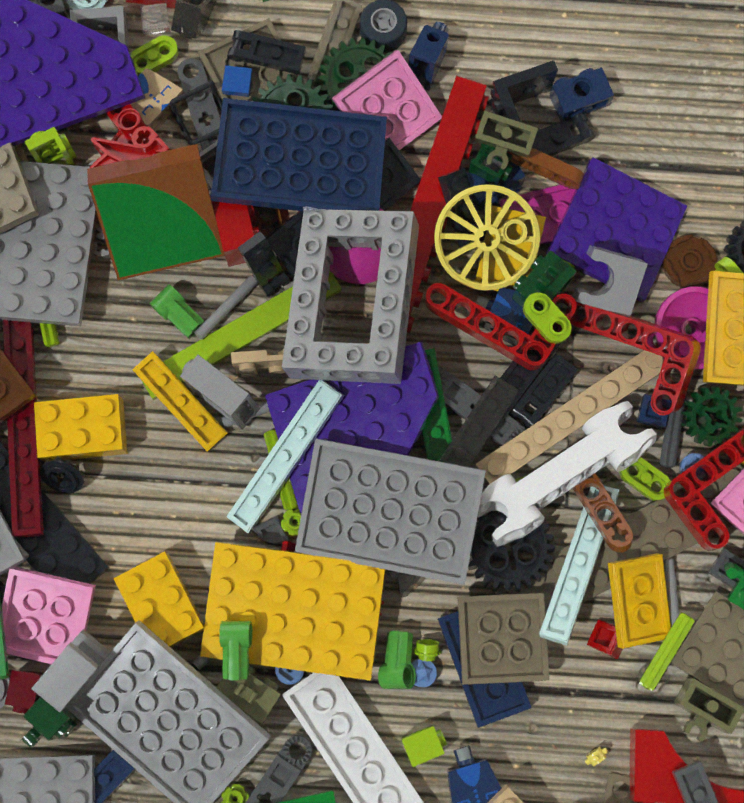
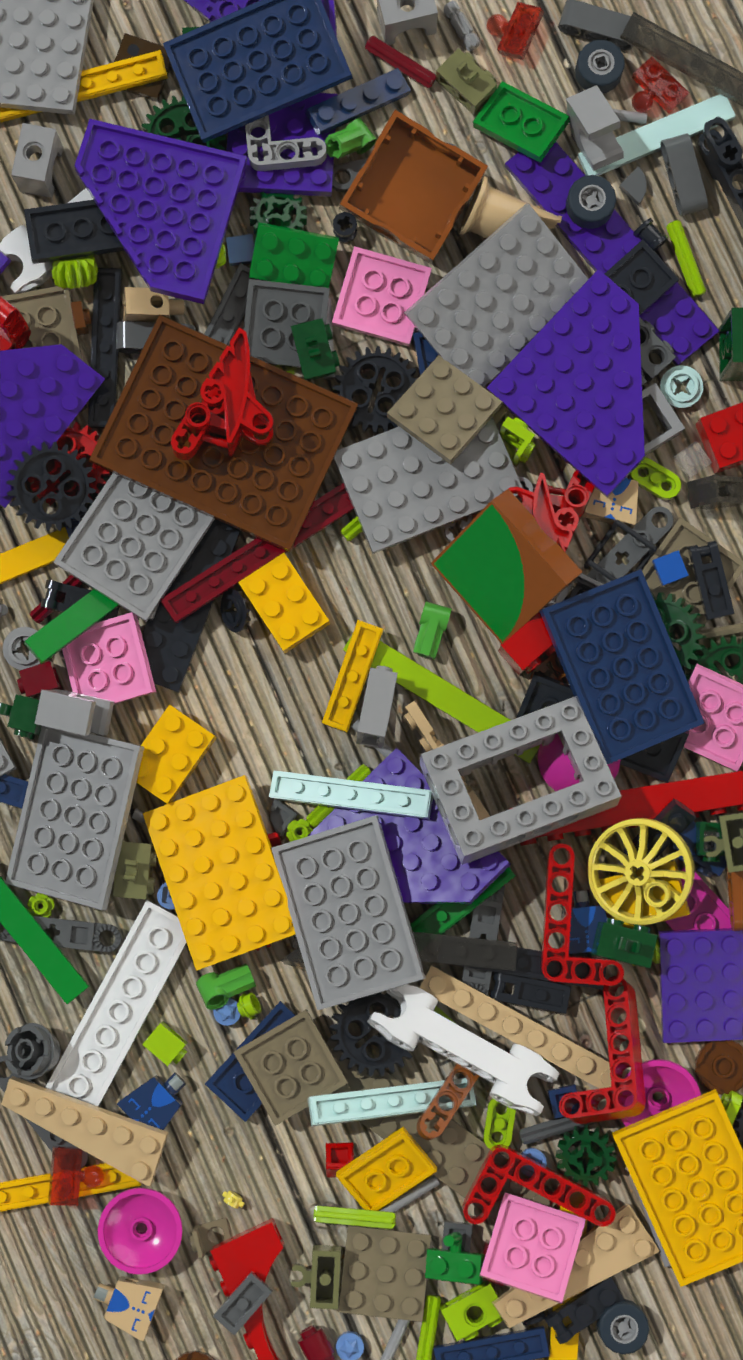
camera: 65 degrees right, 5 degrees up
(226, 307) = (458, 670): light grey bar -> none
(236, 640) = (168, 839): bright green piece -> none
(263, 264) = (511, 684): black plate -> none
(544, 319) = (589, 963): lime plate -> none
(622, 286) = (660, 1016): light grey piece -> none

